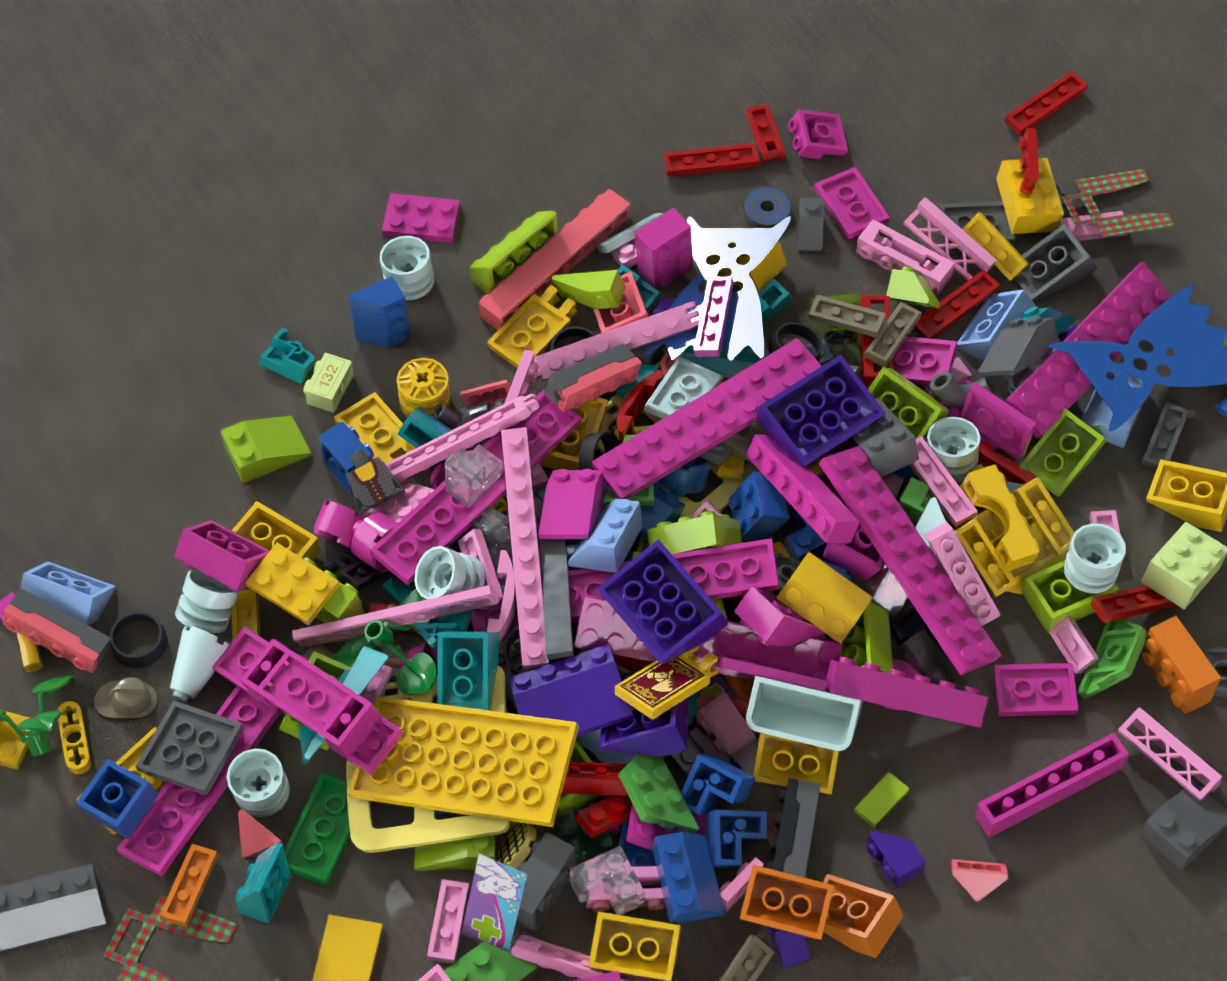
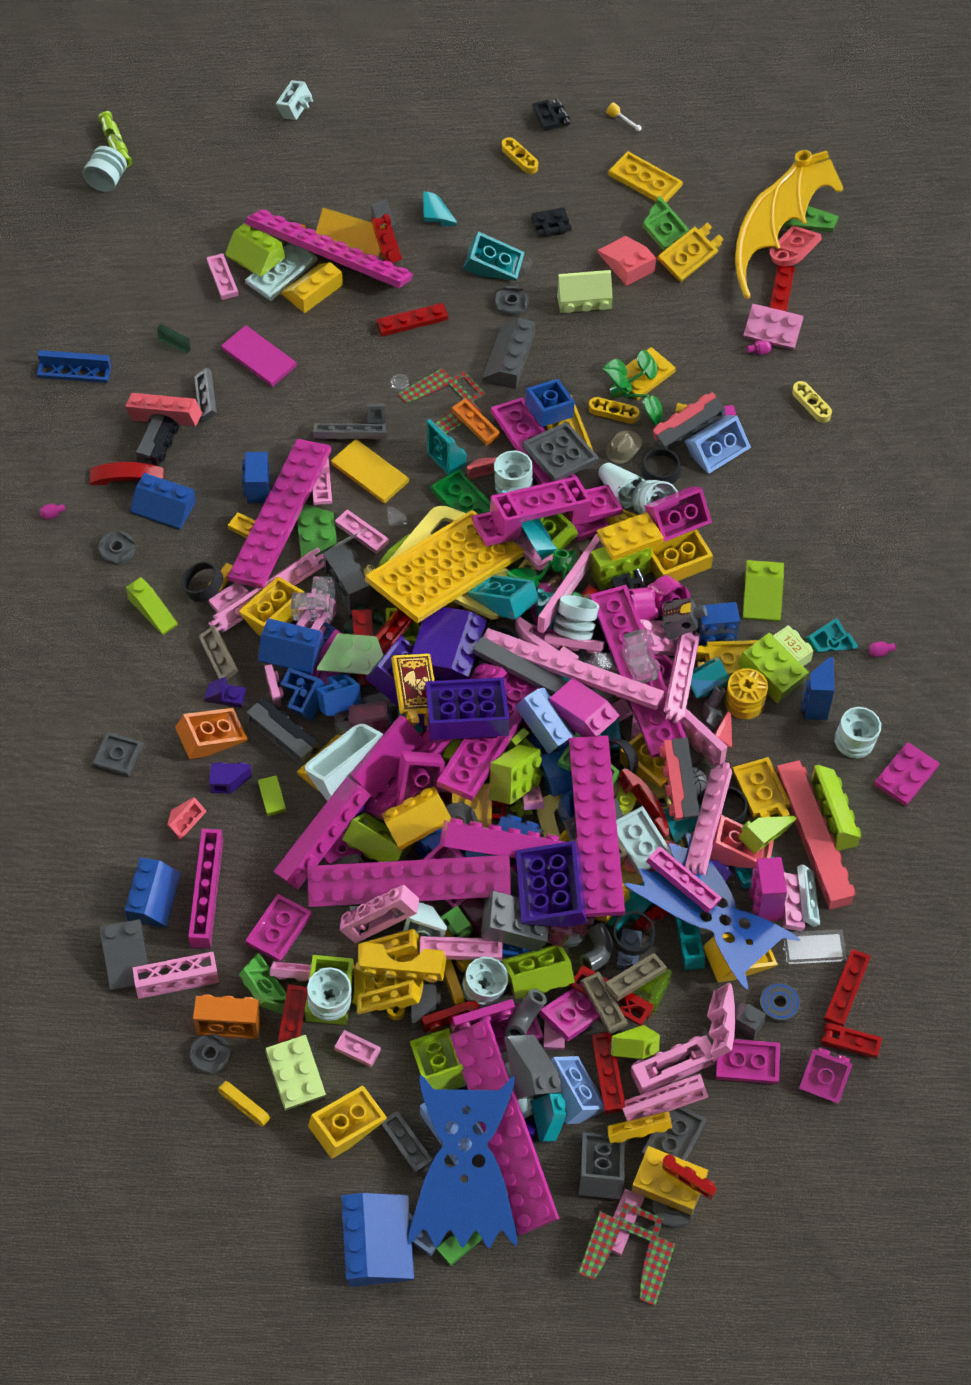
camera: 120 degrees right, 0 degrees up
(273, 304) = (881, 649): none -> dark pink cylinder
(370, 381) = (777, 666): none -> lime brick
(678, 196) = (816, 947): none -> clear piece
(787, 902) = (237, 688): orange slope -> none
(831, 232) = (722, 1015): none -> bright pink slope
(1046, 103) = (761, 1269): red plate -> none
(1098, 845) = (152, 893): none -> blue slope

